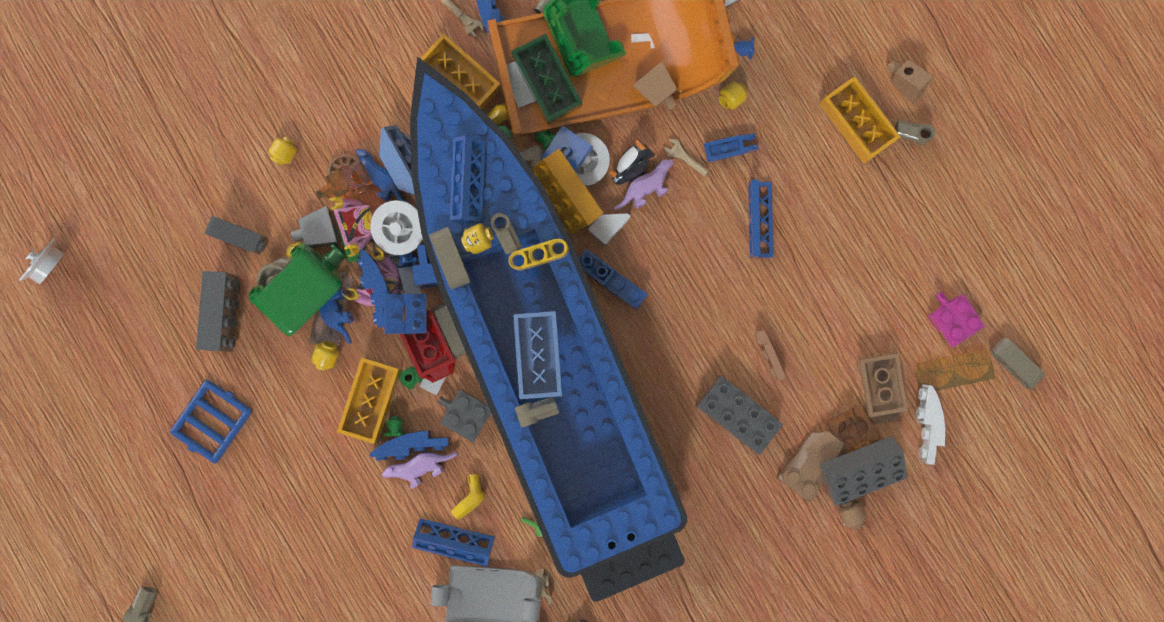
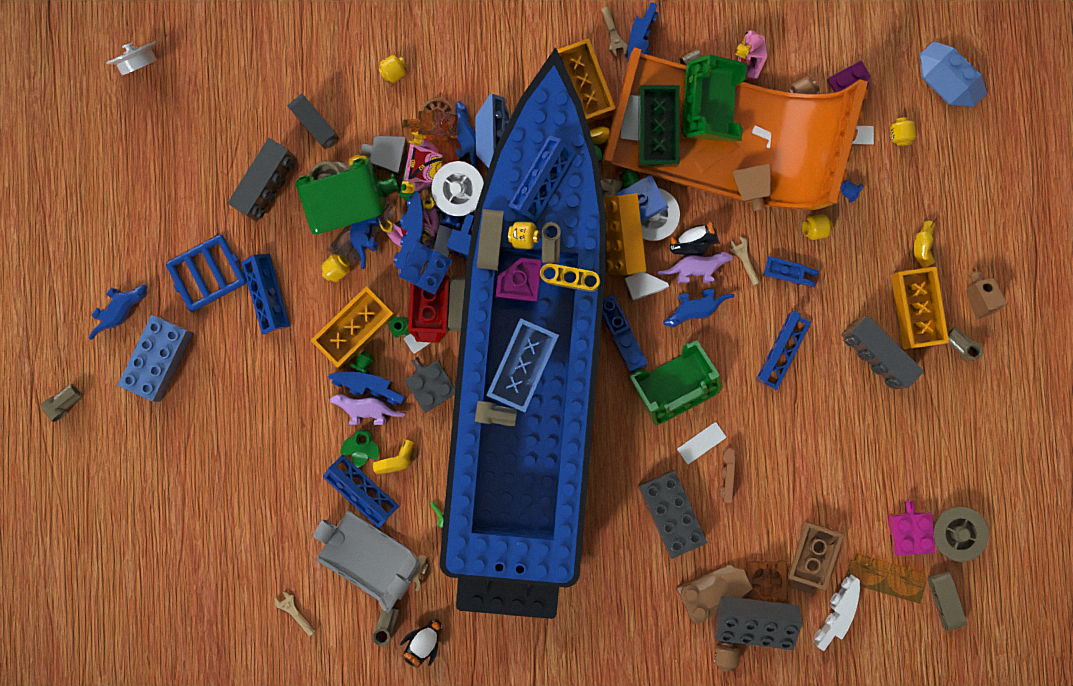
camera: 30 degrees right, 0 degrees up
(148, 495) = (117, 309): none -> blue animal
(205, 523) = (155, 359): none -> medium blue brick
(275, 409) = (267, 291): none -> blue fence
(434, 506) = (360, 451): none -> green plate
(495, 280) = (520, 280): none -> magenta plate
(664, 223) = (695, 308): none -> blue animal
(683, 298) = (677, 384): none -> green windscreen
(732, 338) = (701, 443): none -> white sticker
(833, 63) = (923, 244): none -> yellow arm
(847, 176) = (881, 353): none -> dark grey brick
(998, 298) = (961, 534): none -> dark tan wheel

